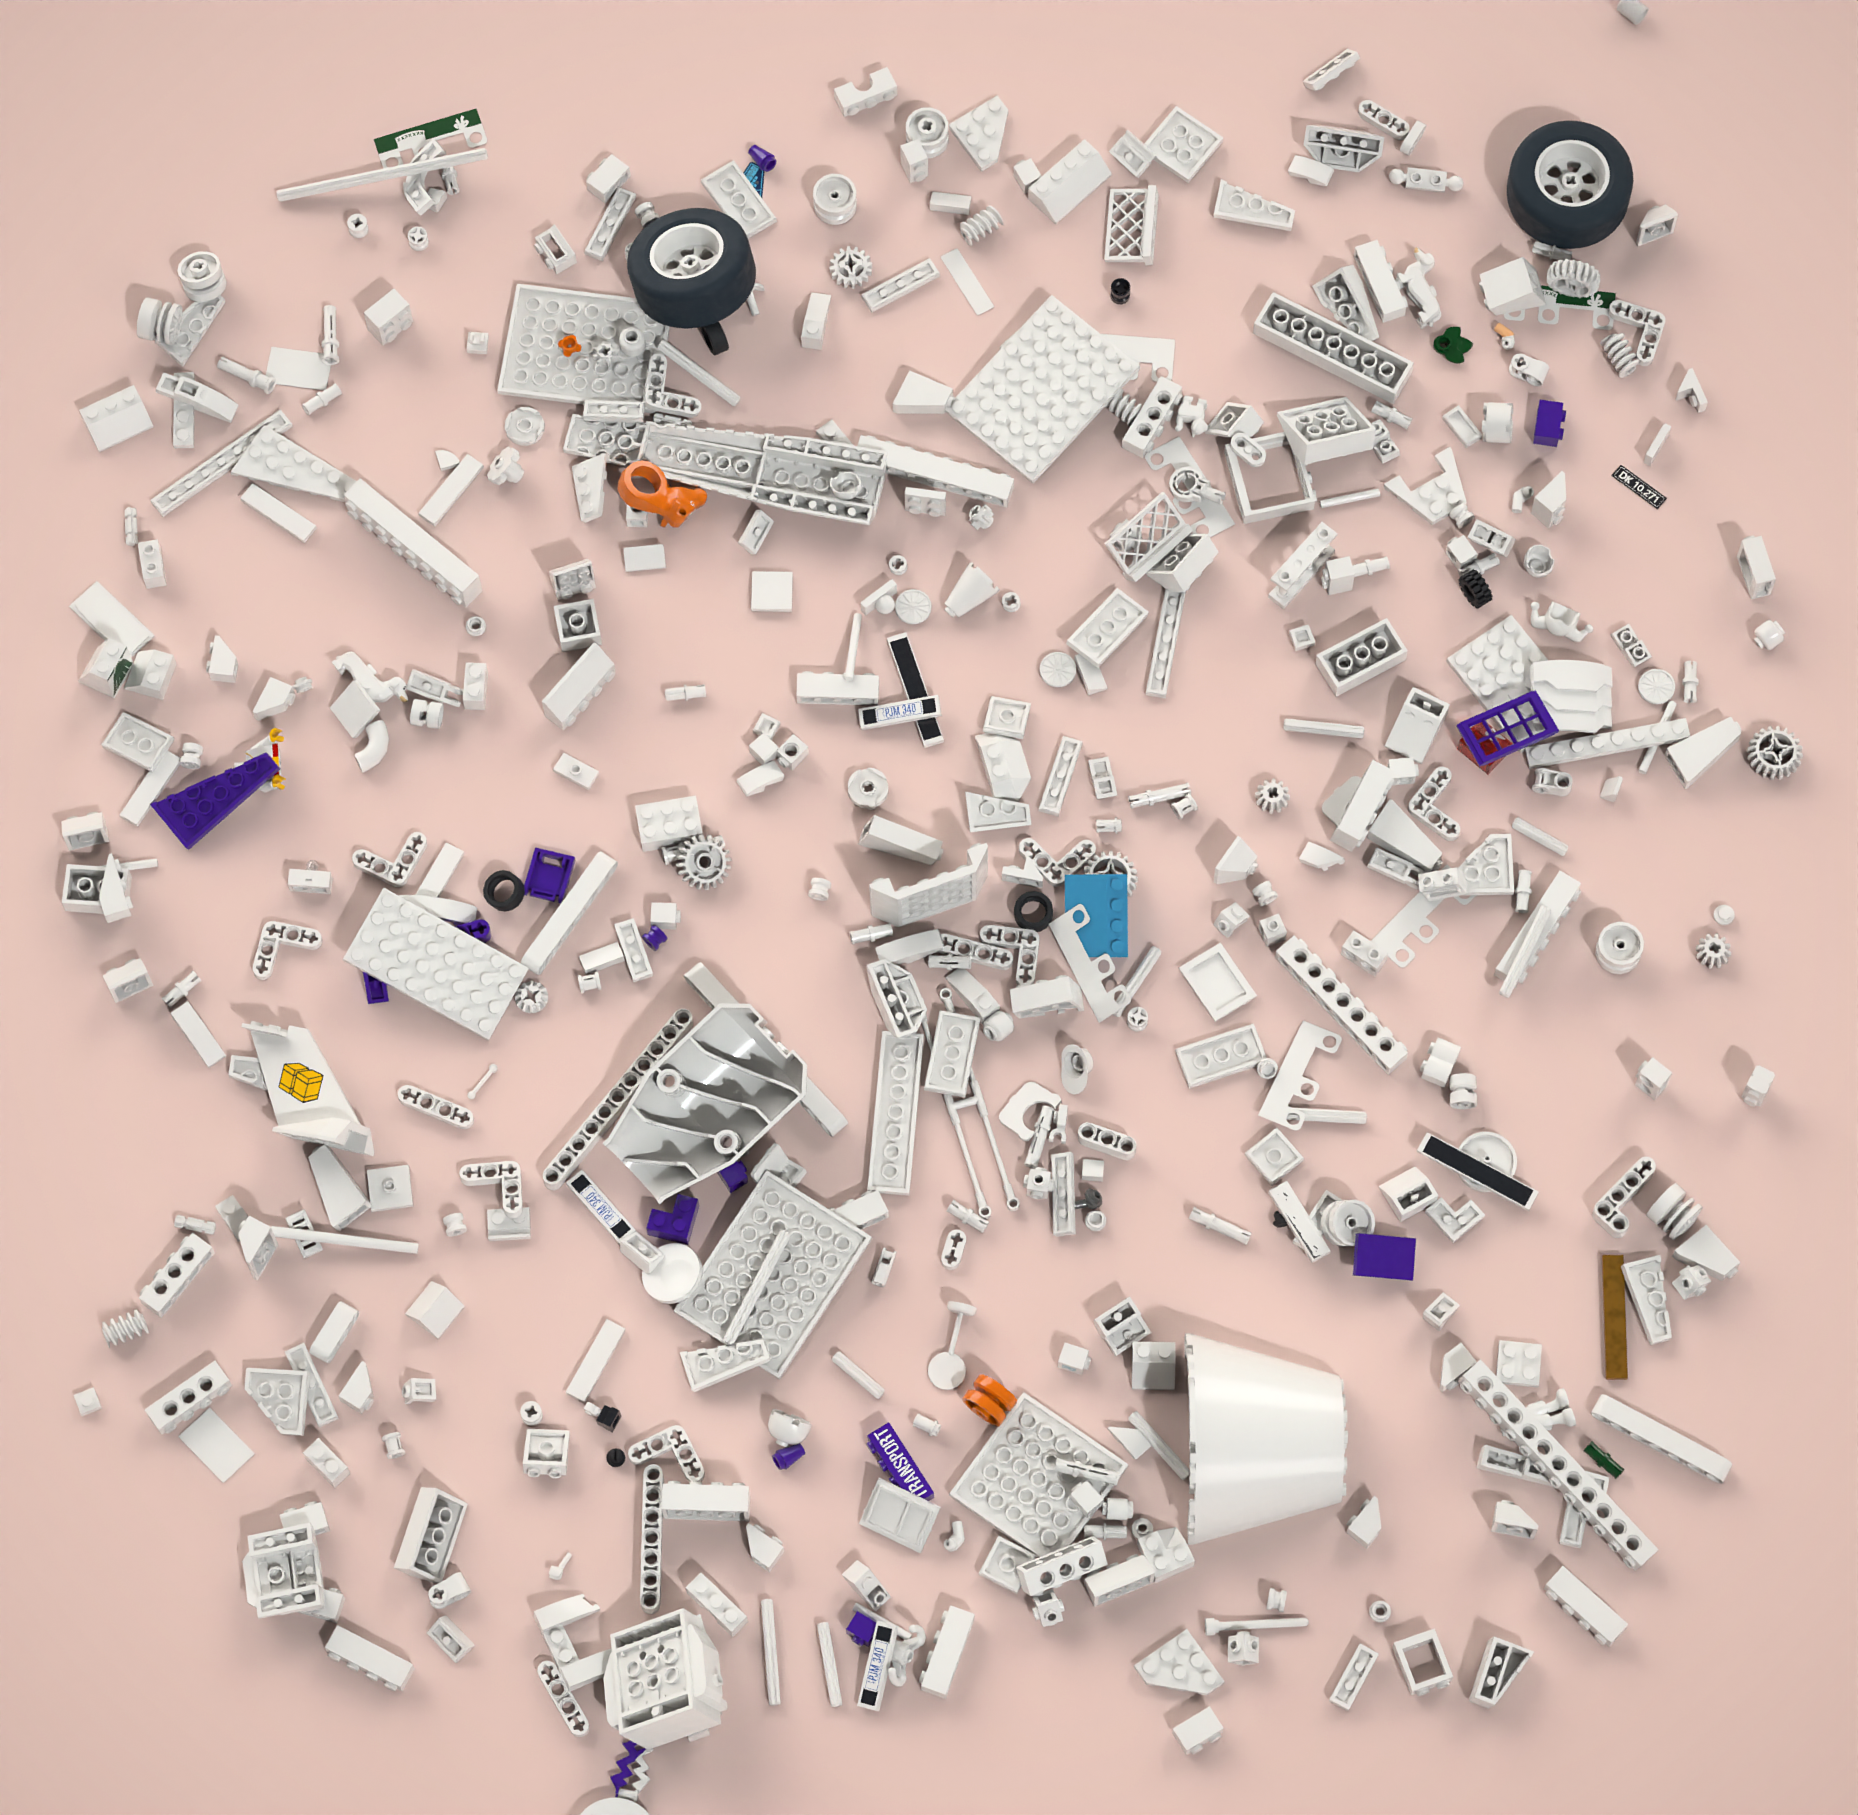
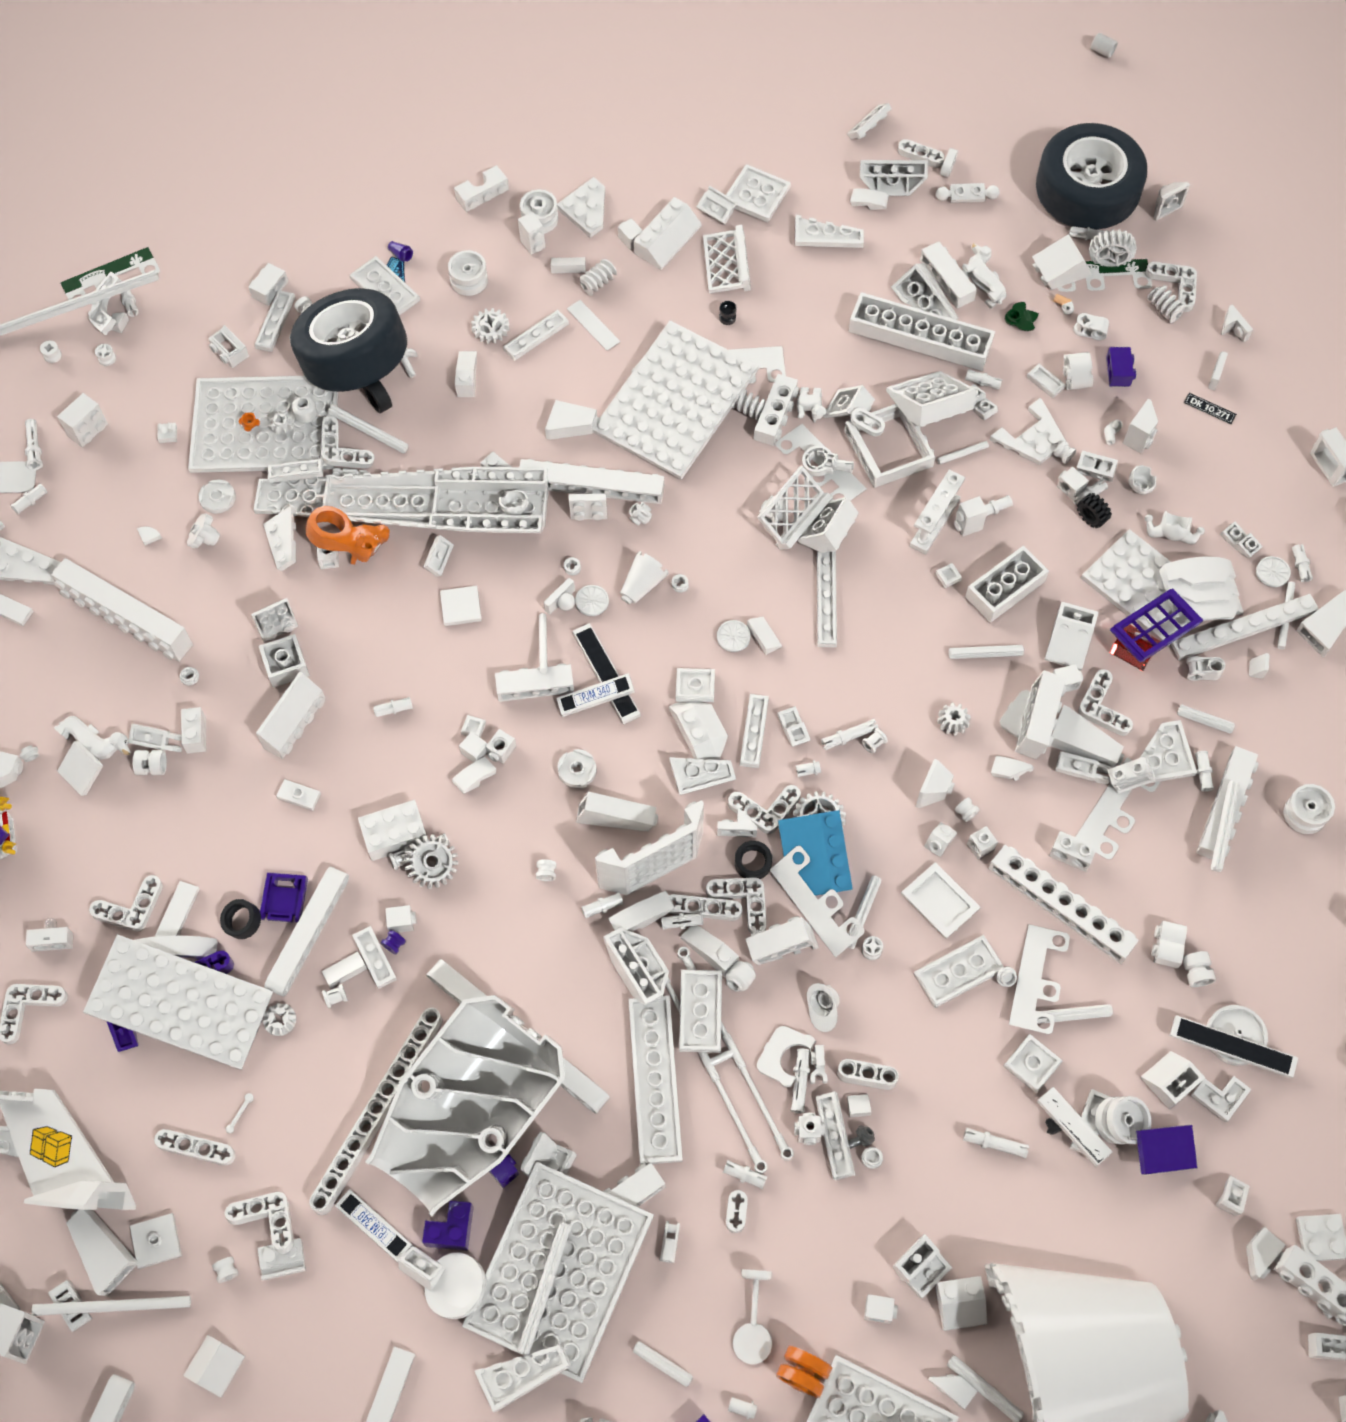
camera: 10 degrees left, 5 degrees down
(376, 746) = (104, 800): white cylinder -> none
(451, 490) = (155, 560): white tile -> none
(644, 558) = (339, 593): white slope -> none
(1107, 628) = (772, 592): white plate -> none

